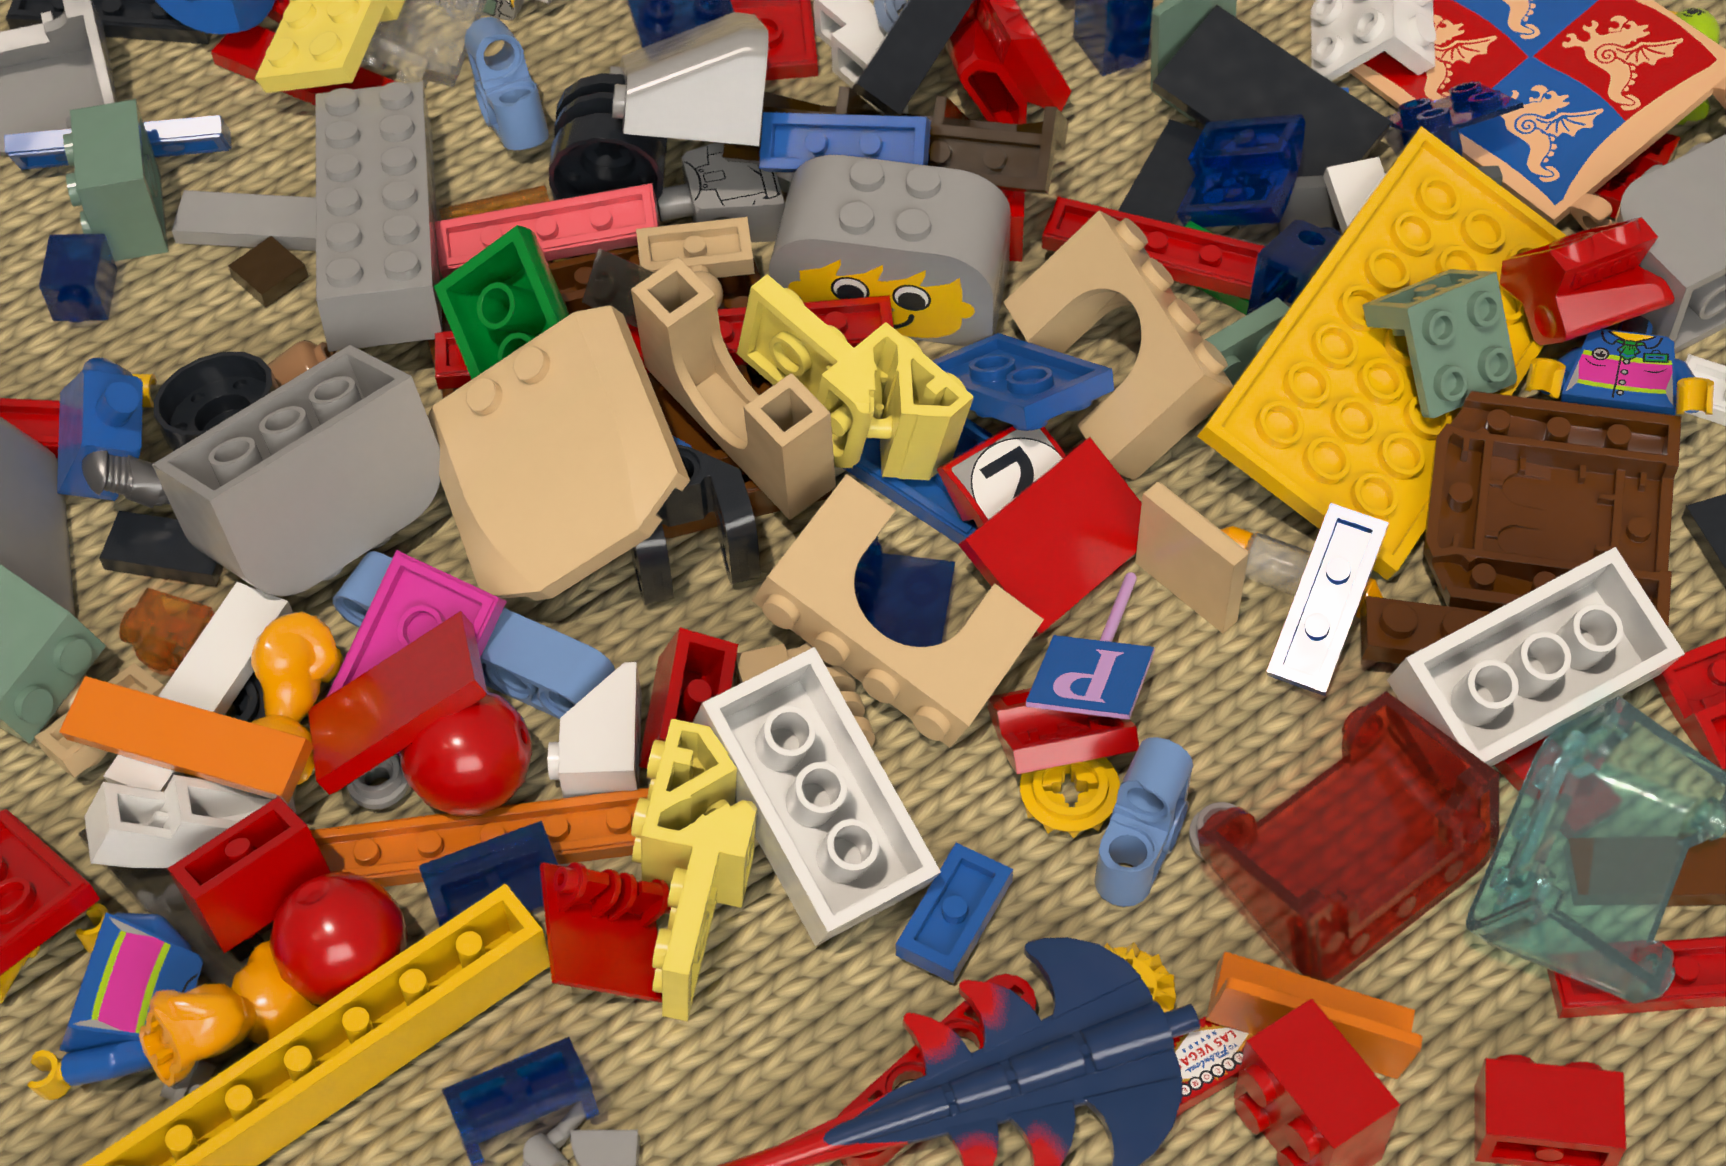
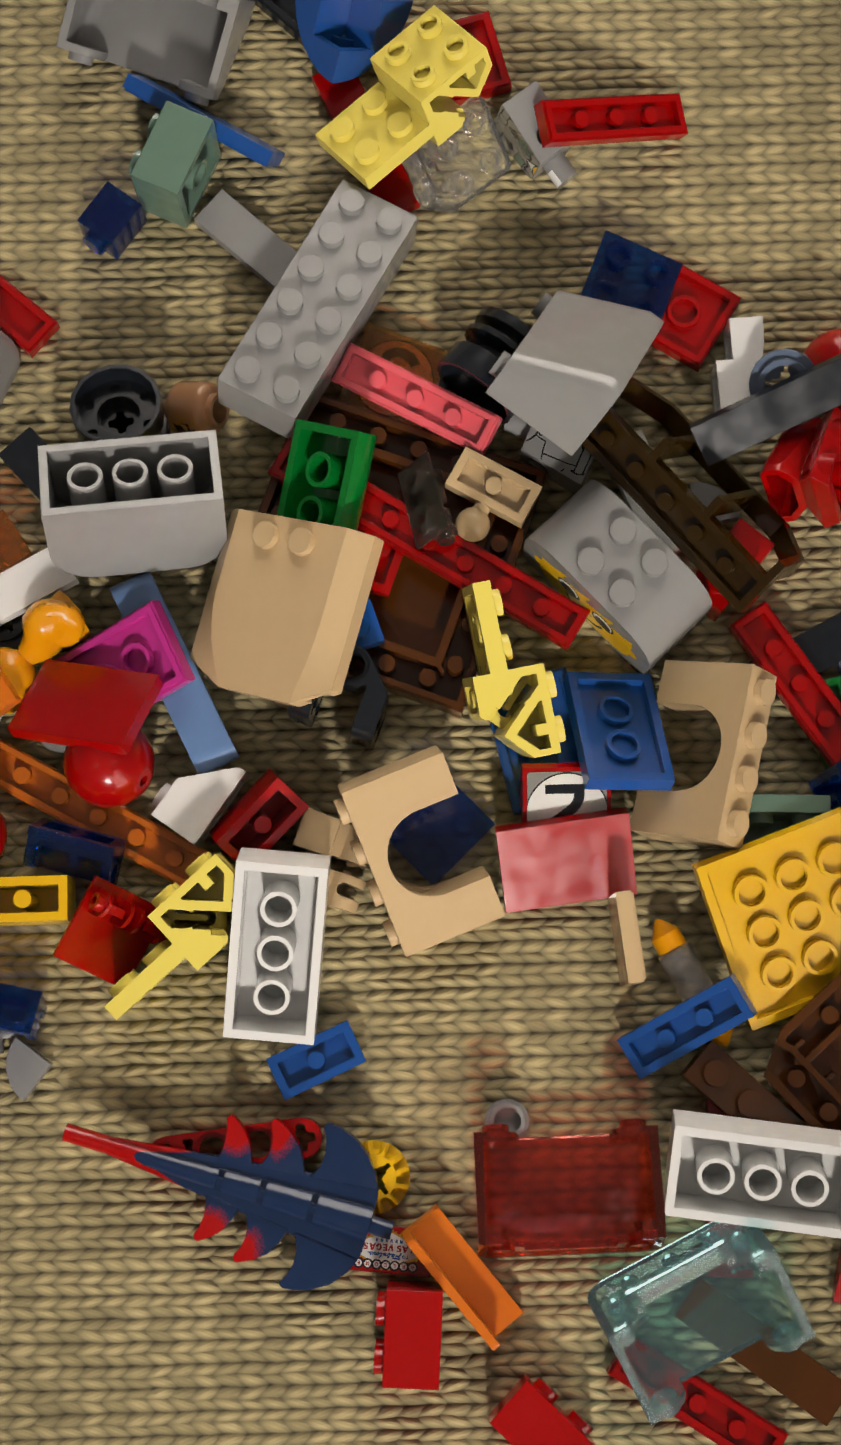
camera: 35 degrees right, 25 degrees up
(104, 435) = (47, 369): blue torso -> none
(268, 271) = (234, 293): dark brown tile -> none
(504, 86) = (475, 252): medium blue piece -> none
(773, 436) = (420, 589): tan arch -> none
(798, 137) = (636, 484): plate -> none
(1053, 738) = (468, 987): red slope -> none
(1093, 674) = (507, 971): blue piece -> none
(1095, 804) = (421, 1033): yellow gear -> none
(1144, 821) = (461, 1088): medium blue piece -> none

